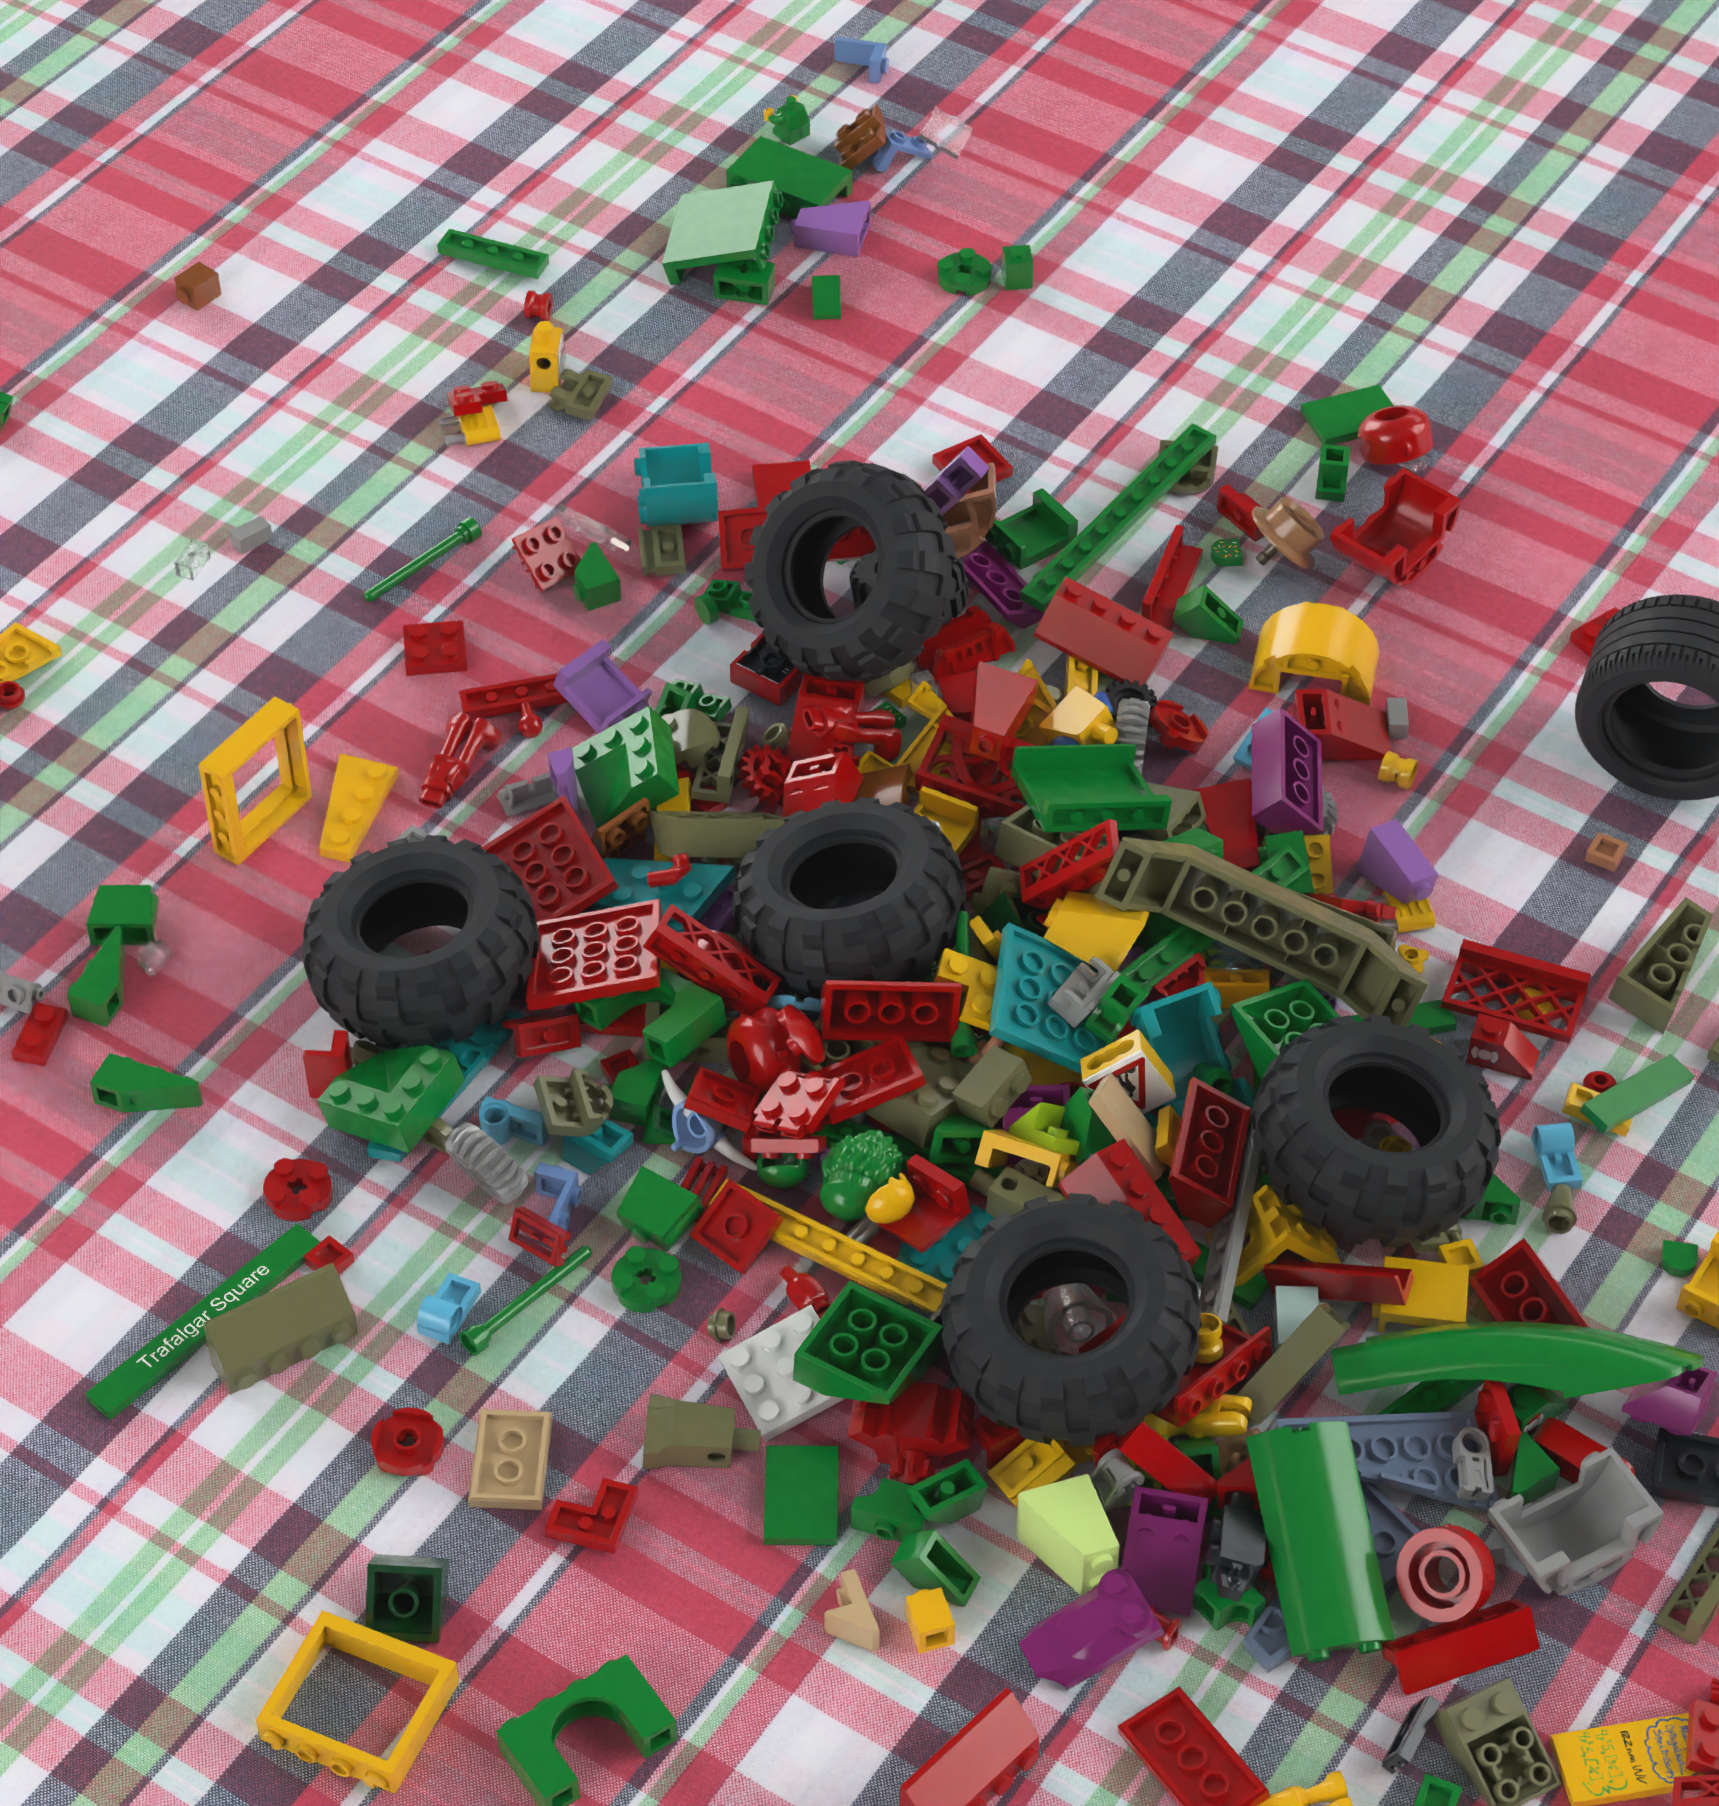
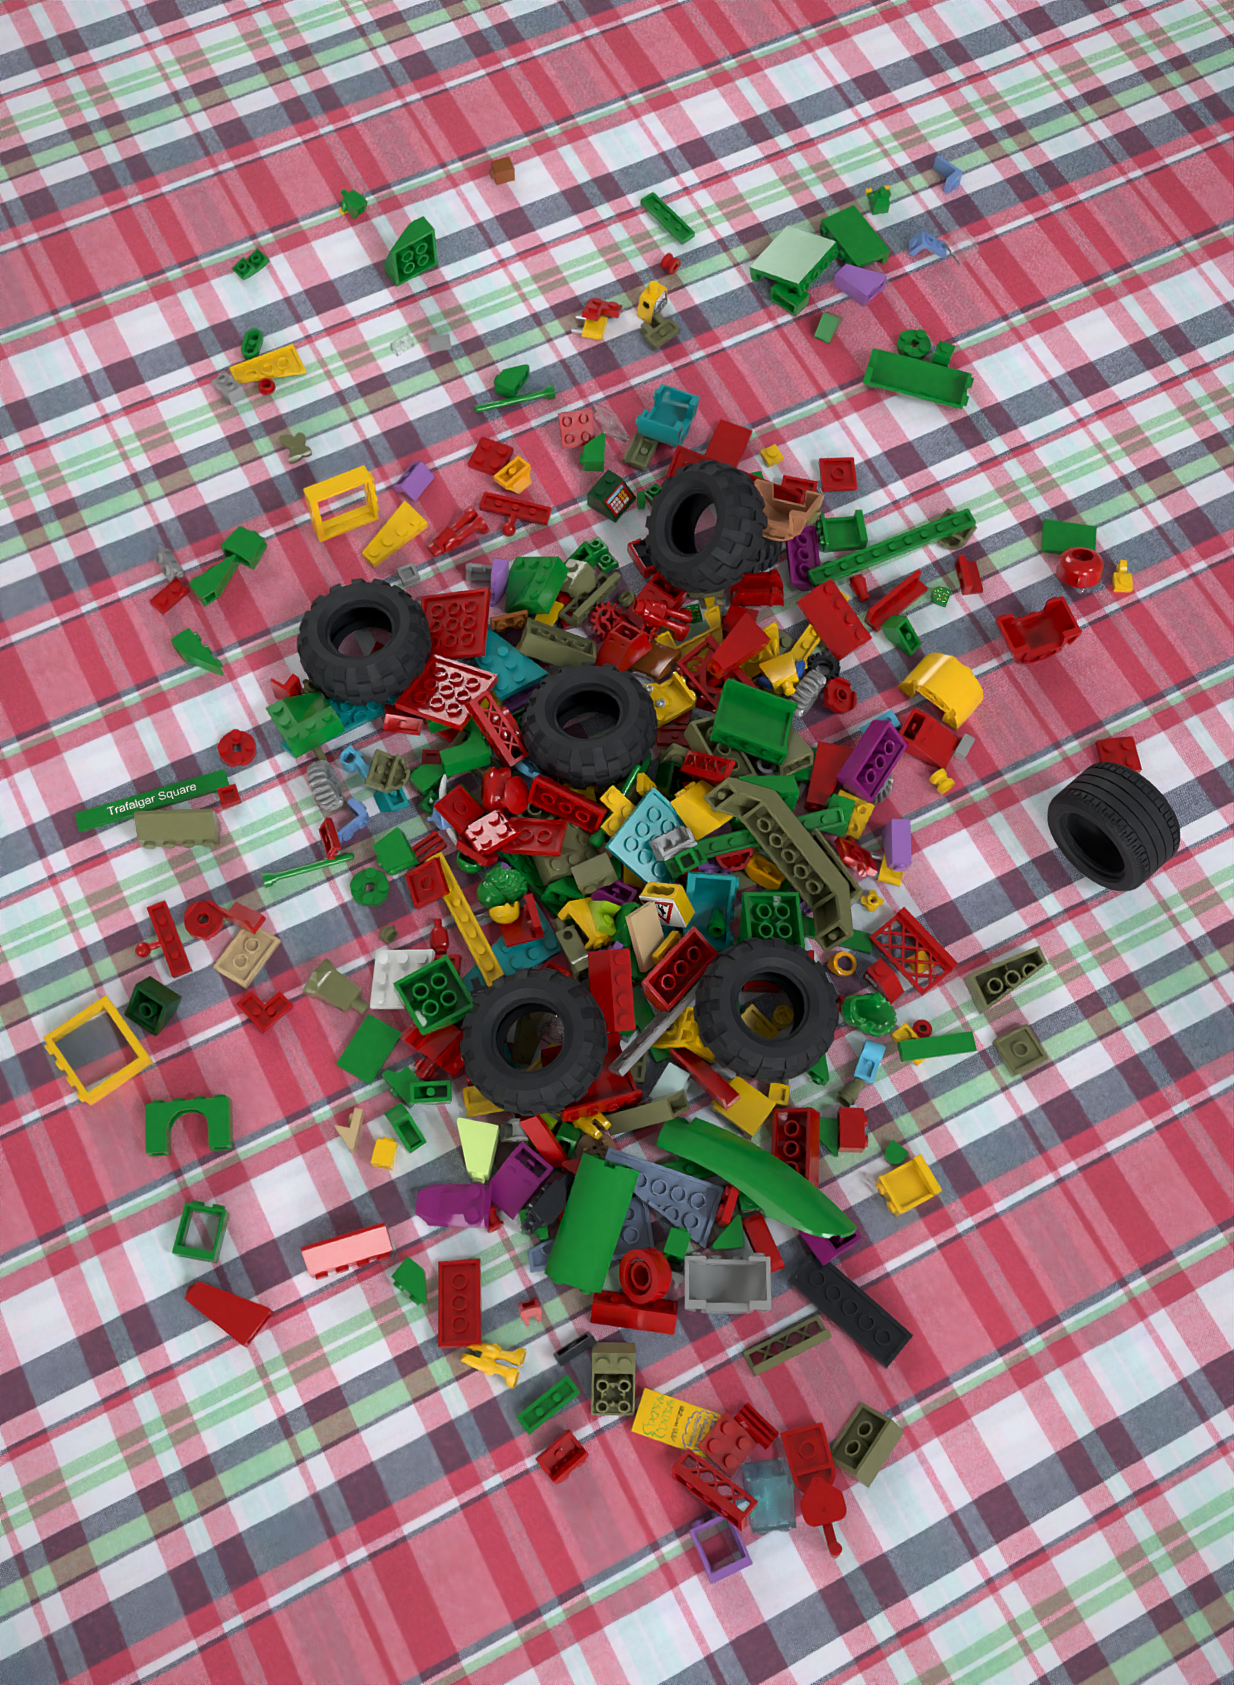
camera: 25 degrees right, 20 degrees up
(116, 751) = (296, 447): none -> olive animal
(138, 430) = (412, 252): none -> green slope
(153, 956) = (246, 578): clear plate -> none
(335, 720) = (414, 480): none -> medium lavender panel
(367, 1495) = (167, 939): none -> red plate
(399, 538) = (511, 380): none -> green slope
(445, 1312) = (264, 856): medium azure plate -> none
(472, 1405) = (243, 917): none -> red panel
(491, 653) = (514, 475): none -> light orange slope
(599, 688) = (554, 527): medium lavender panel -> none
(658, 621) = (610, 496): none -> dark green slope
(673, 875) = (519, 661): red arm -> none
(861, 137) = (909, 230): dark orange slope -> none
(956, 479) = (790, 497): medium lavender slope -> none
(1002, 306) = (918, 378): none -> green cylinder
(1099, 1770) = (413, 1280): none -> green slope
(1105, 584) = (859, 587): none -> red cone
(1209, 1341) = (608, 1078): yellow wheel -> none
(1289, 531) = (976, 603): medium nougat piece -> none
(1304, 1716) = (529, 1309): none -> tile
(1332, 473) = (1030, 574): green brick -> none
(1458, 434) = (1121, 580): none -> yellow plate
(1463, 1505) = (677, 1245): none -> green brick
(1473, 1468) = (701, 1222): light grey piece -> none
(1521, 1092) = (869, 1013): none -> green hair
(1573, 1278) = (829, 1134): none -> green tile
(1596, 1254) = (852, 1129): none -> red brick
(1606, 851) = (1022, 889): nougat plate -> none

